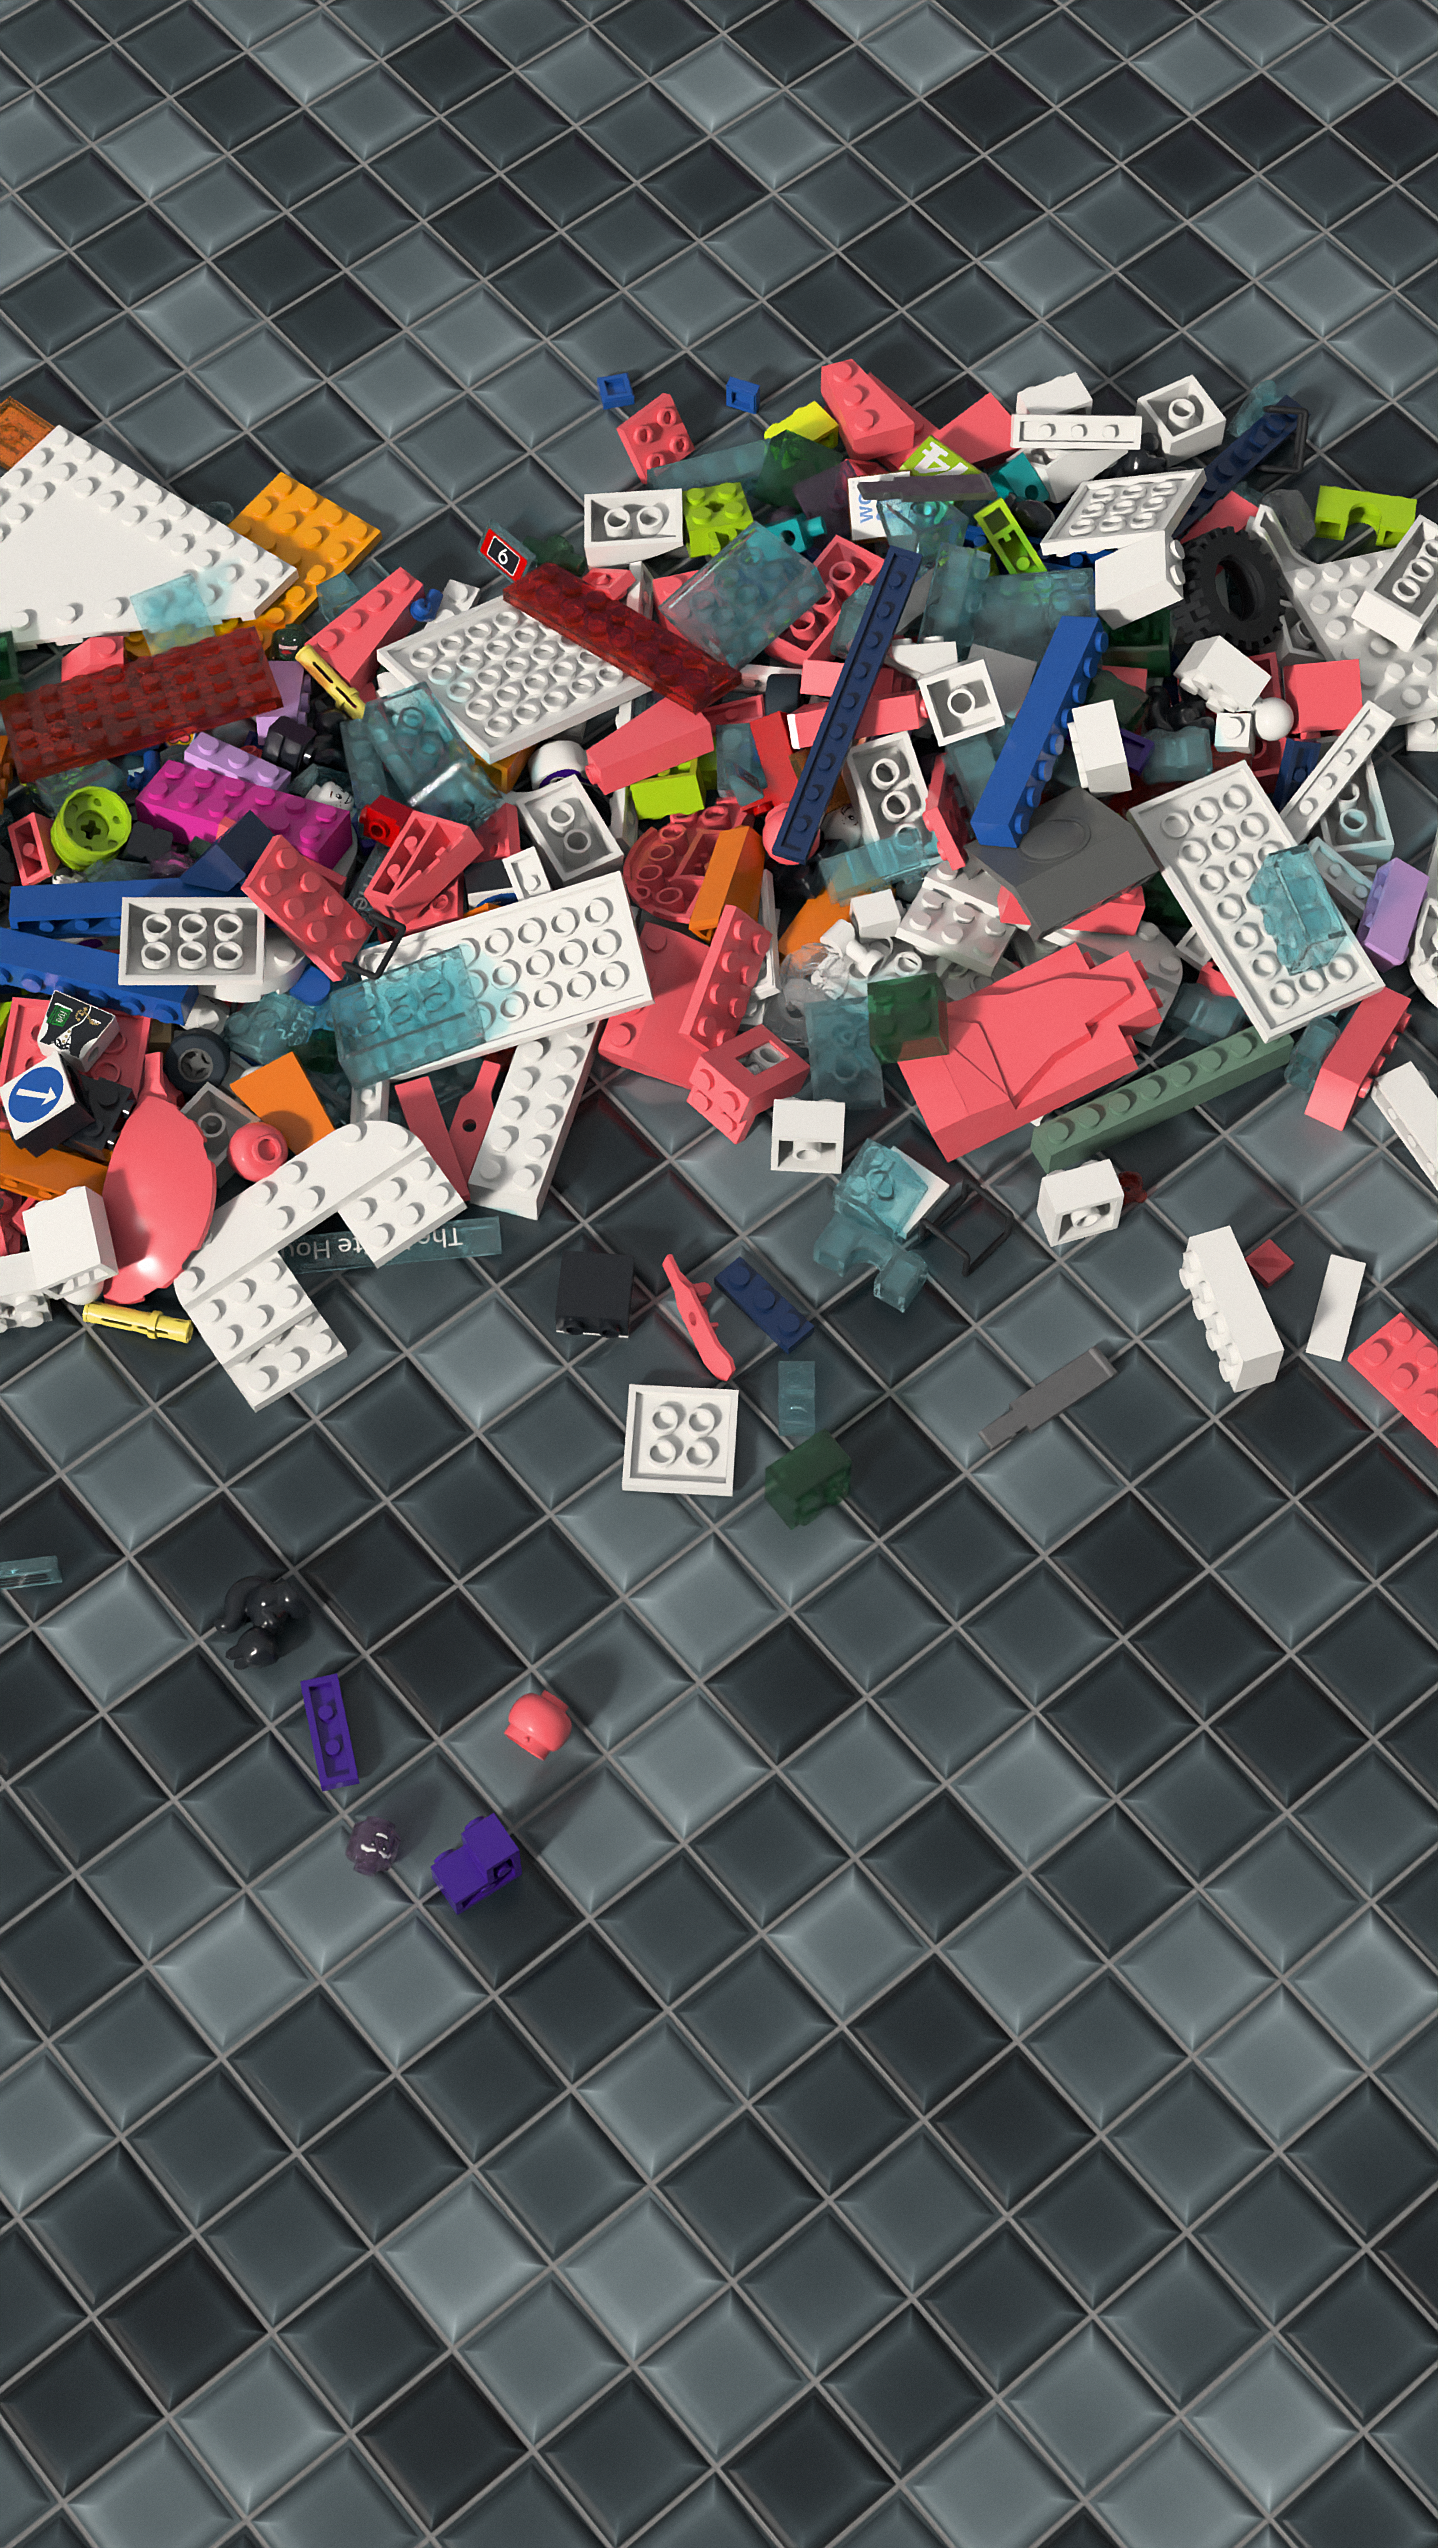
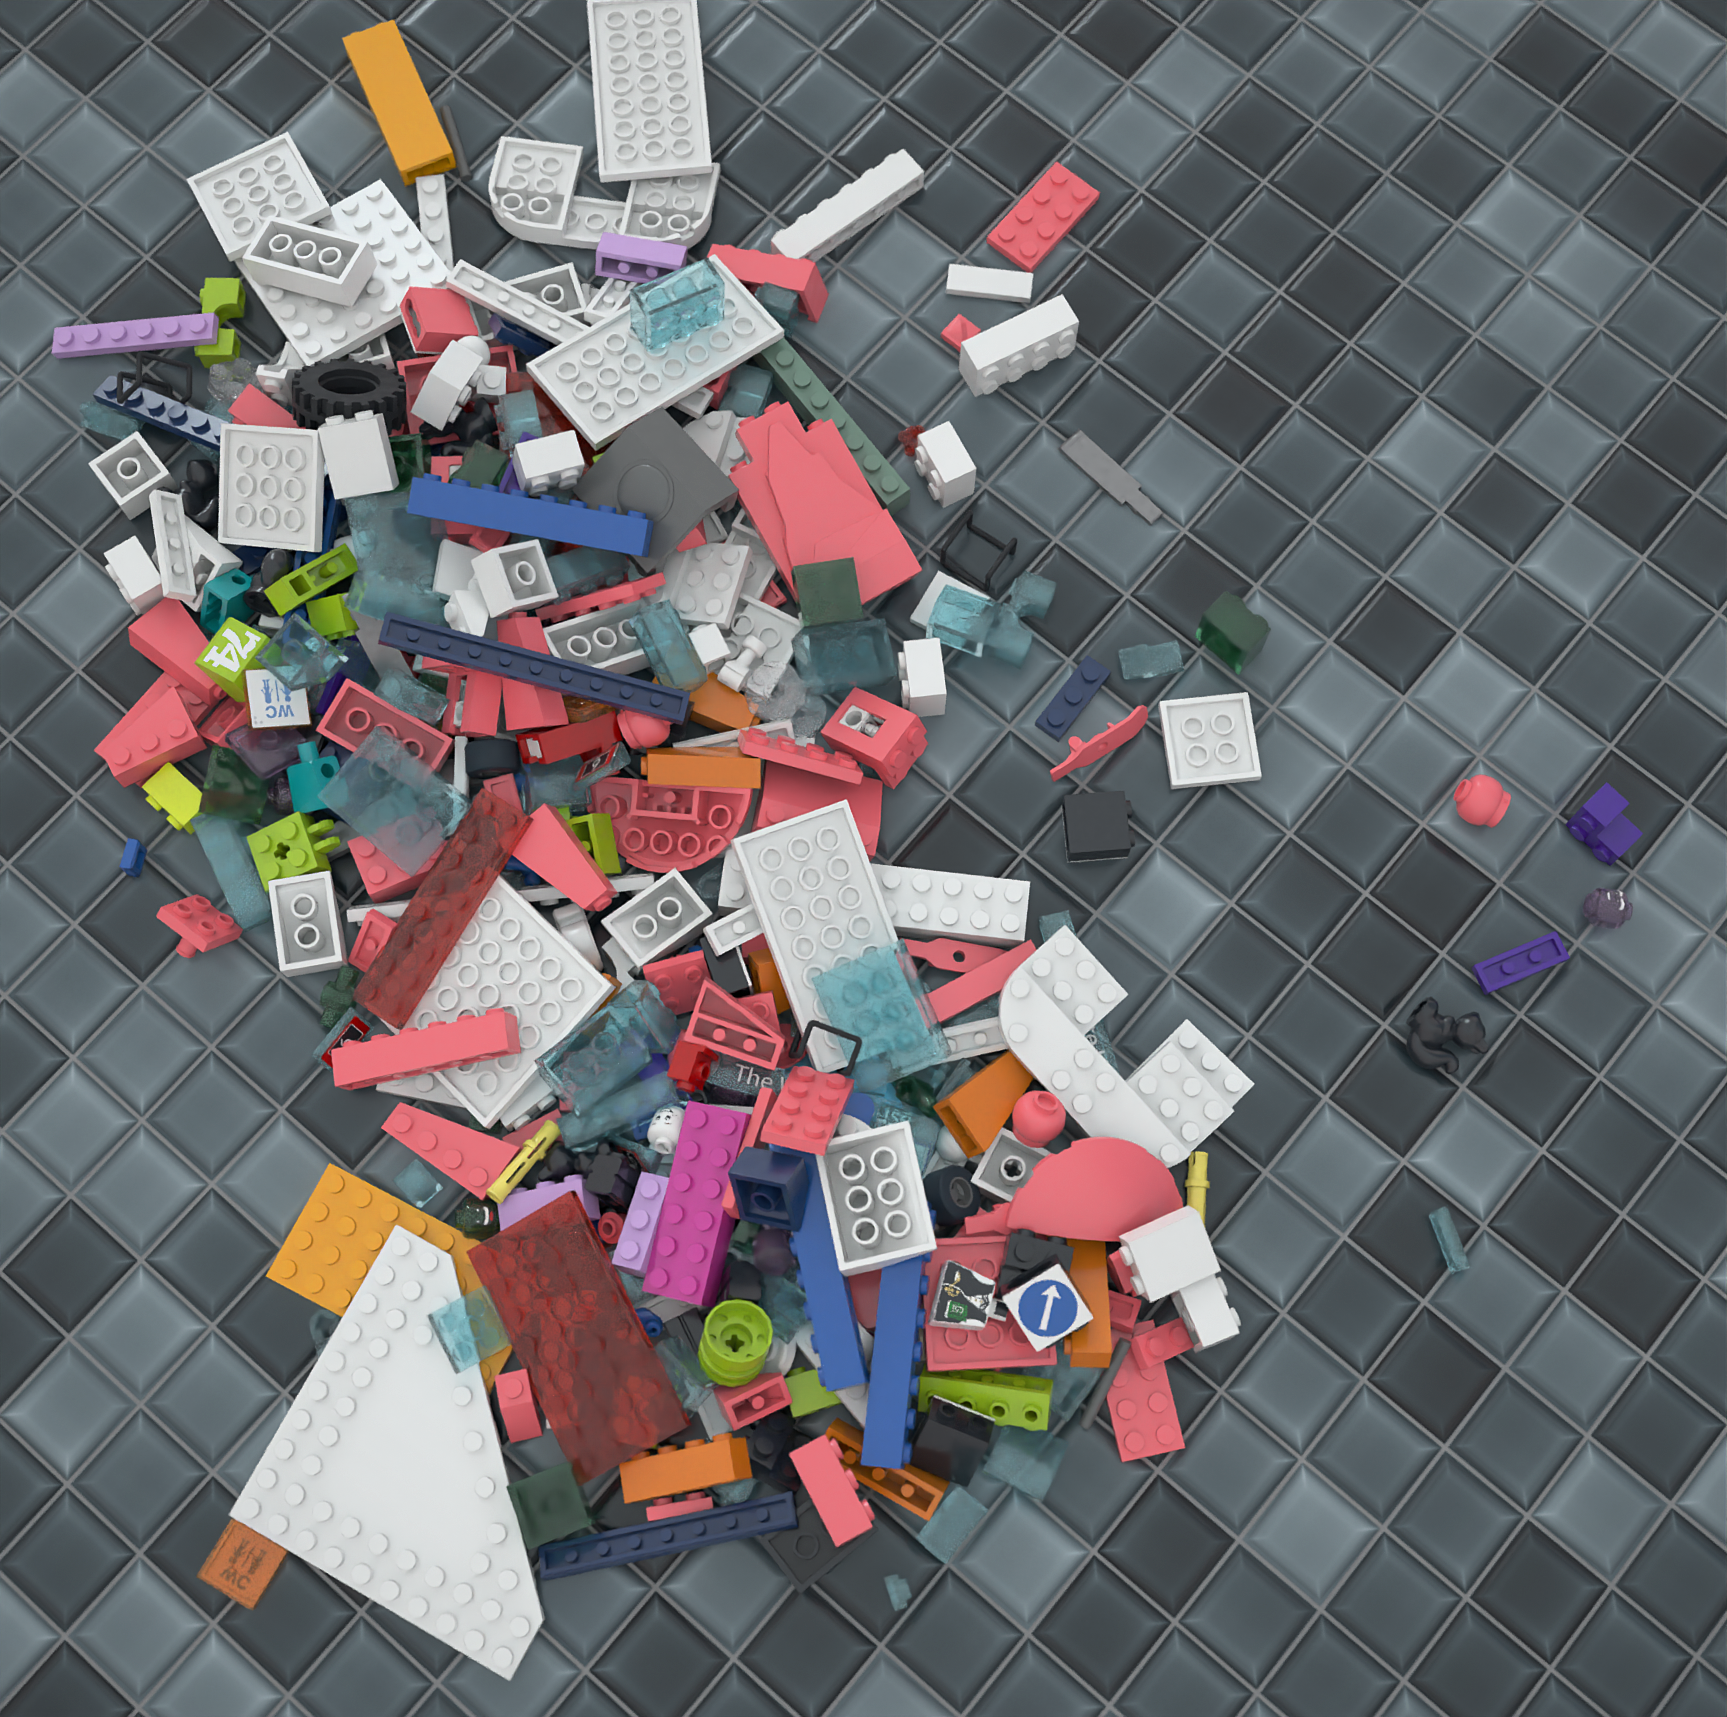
camera: 100 degrees left, 10 degrees up
(426, 609) = (422, 1099): blue arm -> none
(468, 609) = (425, 1050): none -> coral brick
(615, 391) = (132, 979): blue tile -> none
(930, 488) = (264, 649): flat silver piece -> none
(1353, 436) = (135, 335): none -> lavender plate

